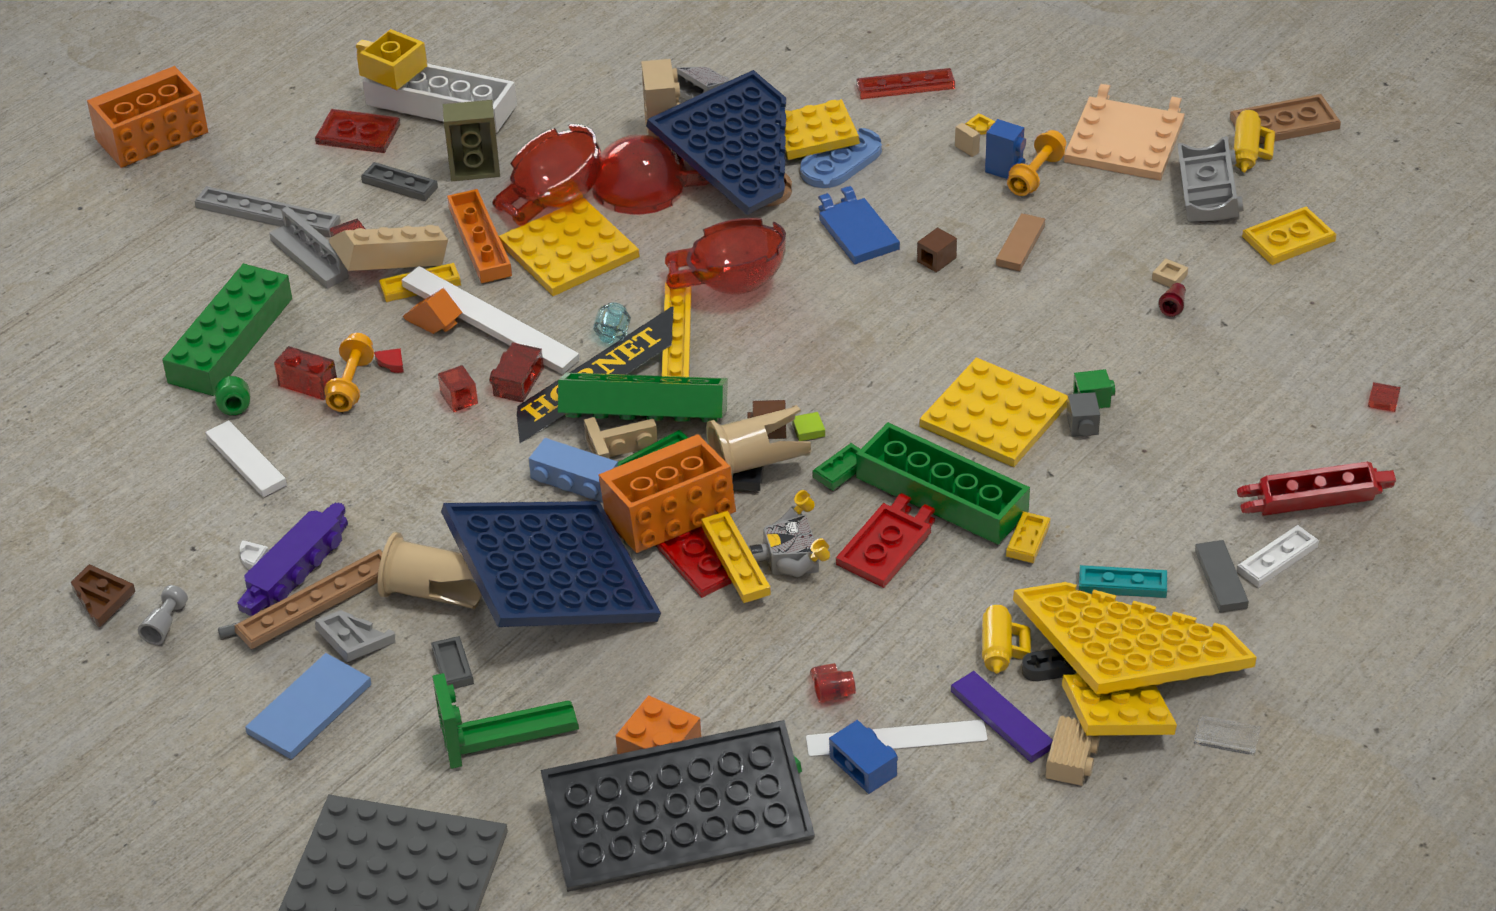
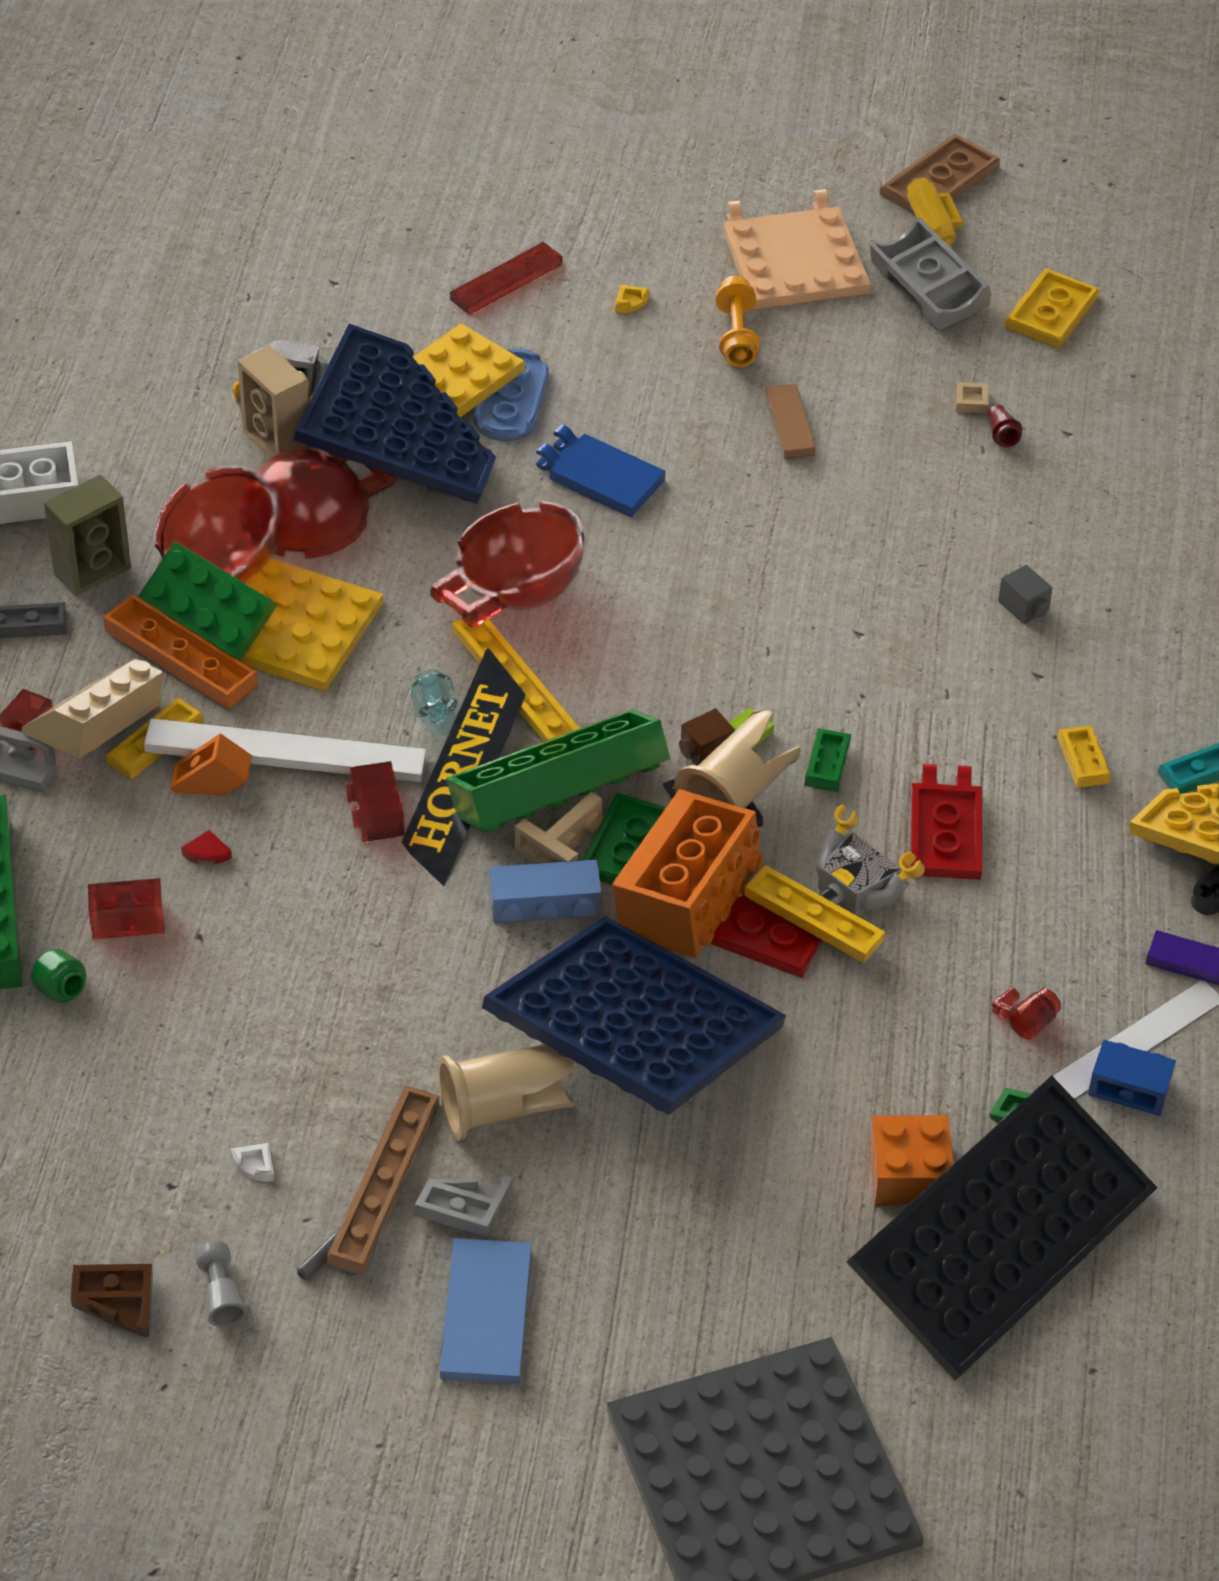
camera: 35 degrees left, 5 degrees up
(246, 458) = (139, 1046): white tile -> none
(293, 558) = (315, 1145): dark purple hinge -> none
(342, 392) = (195, 914): light orange piece -> none
(452, 662) = (603, 1181): dark grey tile -> none
(457, 388) = (325, 850): clear red brick -> none
(496, 730) = (704, 1251): green bracket -> none
(513, 208) = (208, 600): none -> green plate
(936, 249) = (715, 465): reddish brown brick -> none
(944, 480) = (956, 729): green brick -> none
(967, 139) = (637, 321): tan tile -> none
(994, 412) = (927, 629): yellow plate -> none
(997, 639) = (1155, 882): yellow piece -> none
(1004, 148) = (698, 318): blue brick -> none
(1095, 382) = (1008, 557): green brick -> none

